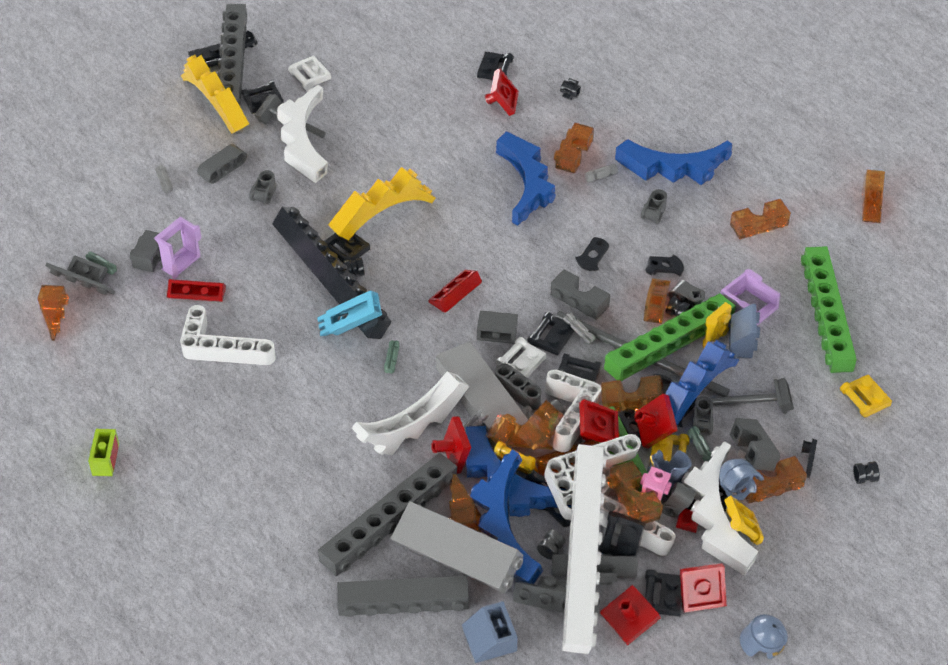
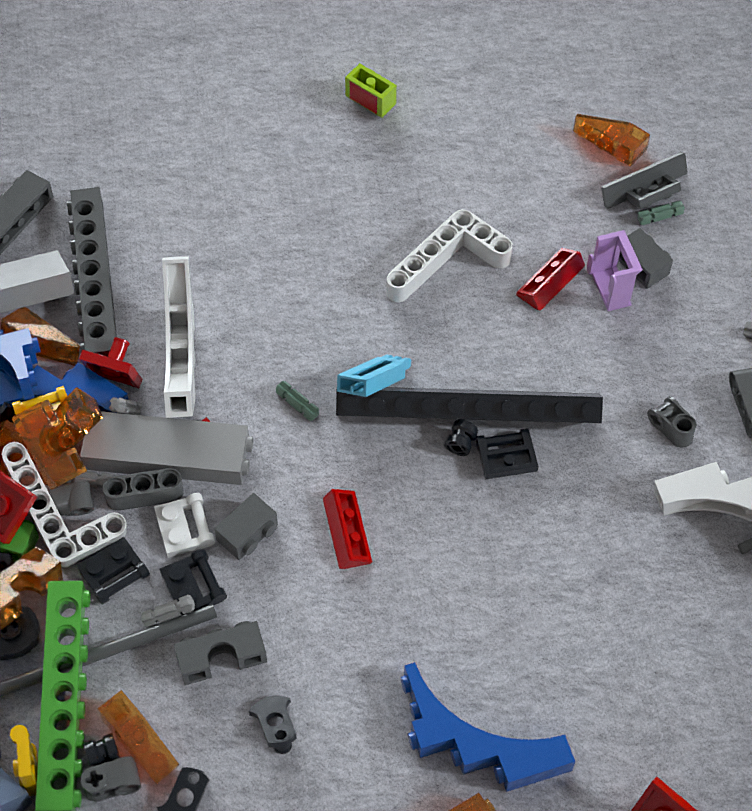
camera: 125 degrees right, 10 degrees up
(382, 195) = (533, 516): yellow arch -> none

